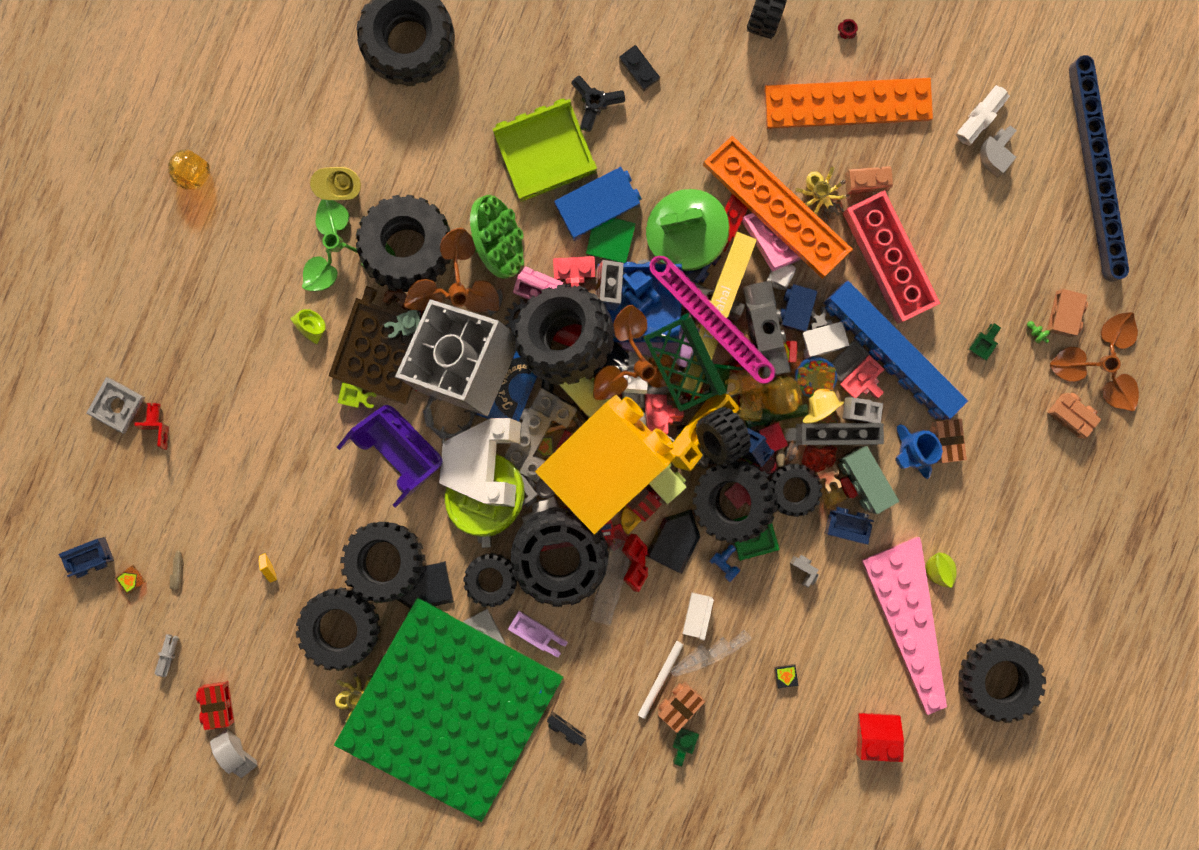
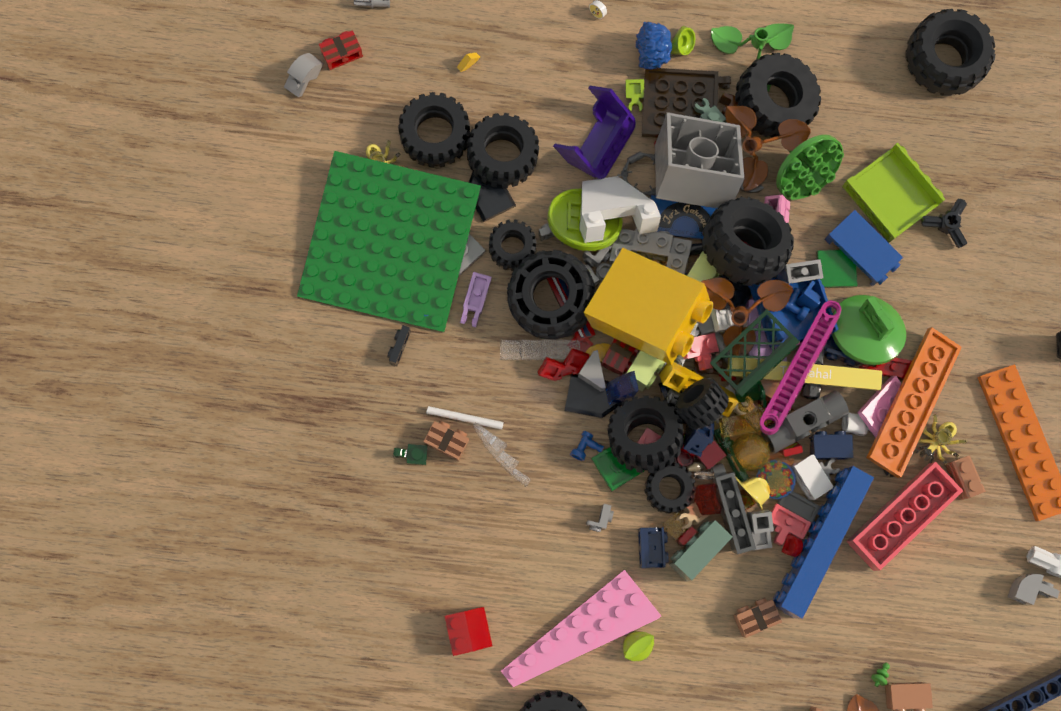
camera: 65 degrees right, 10 degrees down
(245, 407) = (598, 9): none -> tile
(307, 361) = (653, 45): none -> blue hair
(335, 183) = (807, 29): light yellow piece -> none
(574, 269) = (803, 248): coral hinge -> none
(639, 68) = (990, 253): black plate -> none
(652, 535) = (592, 372): none -> light grey slope
(681, 513) = (622, 388): none -> clear blue slope
(698, 615) = (531, 434): white panel -> none
(786, 676) = (499, 529): tile -> none
(889, 383) = (792, 546): none -> red tile
(918, 450) = (740, 590): blue piece -> none
(983, 344) = (854, 626): dark green plate -> none

